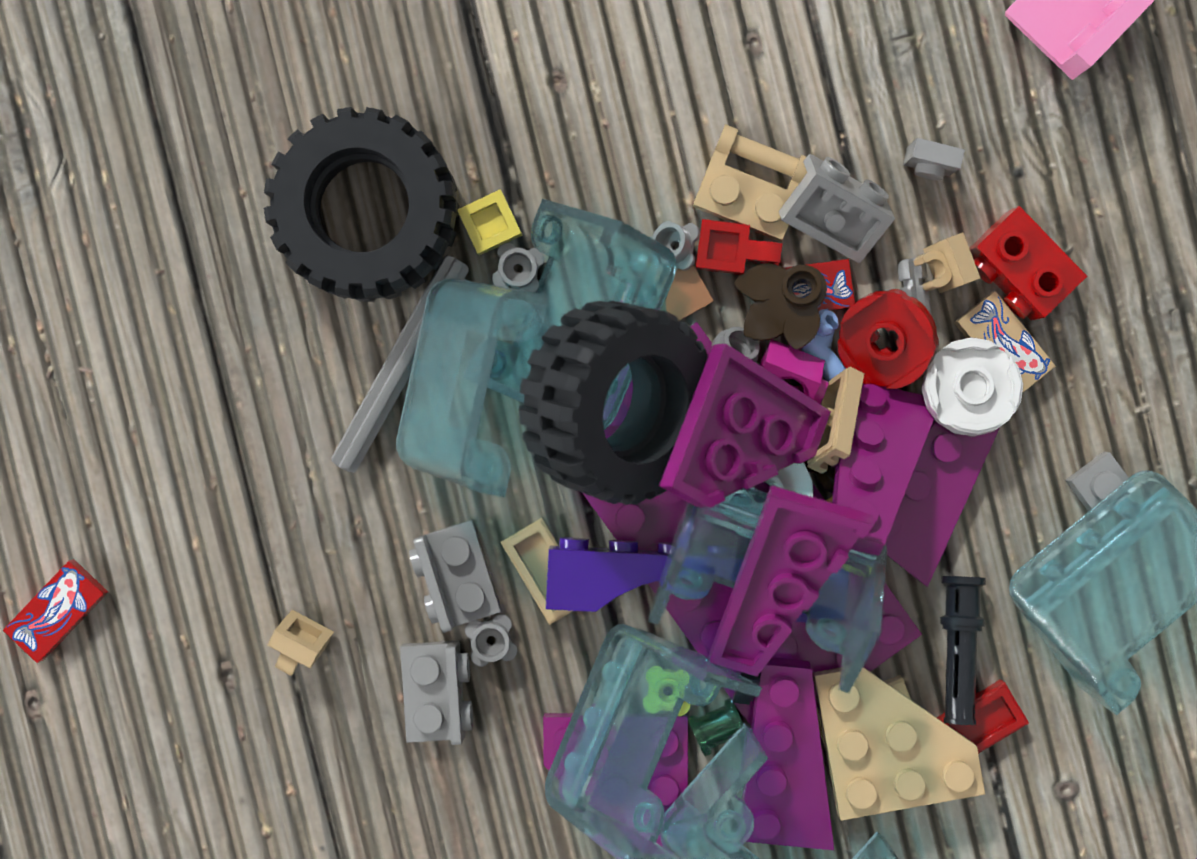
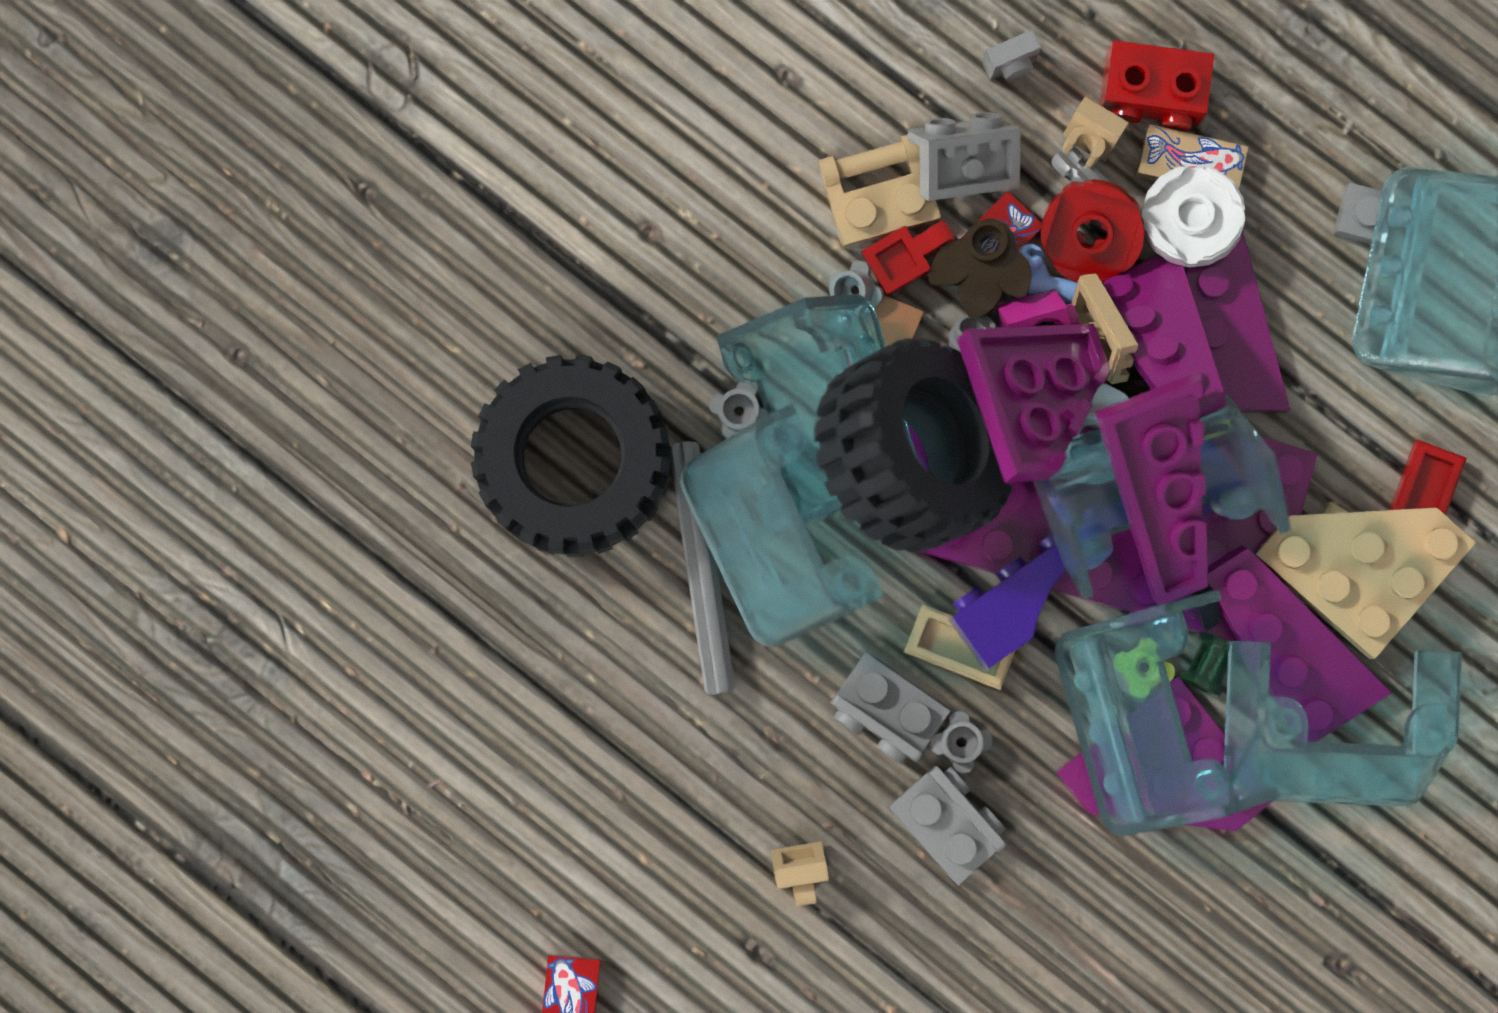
camera: 30 degrees left, 5 degrees down
(489, 222) = (686, 390): light yellow plate -> none
(962, 623) = (1344, 418): black pin -> none

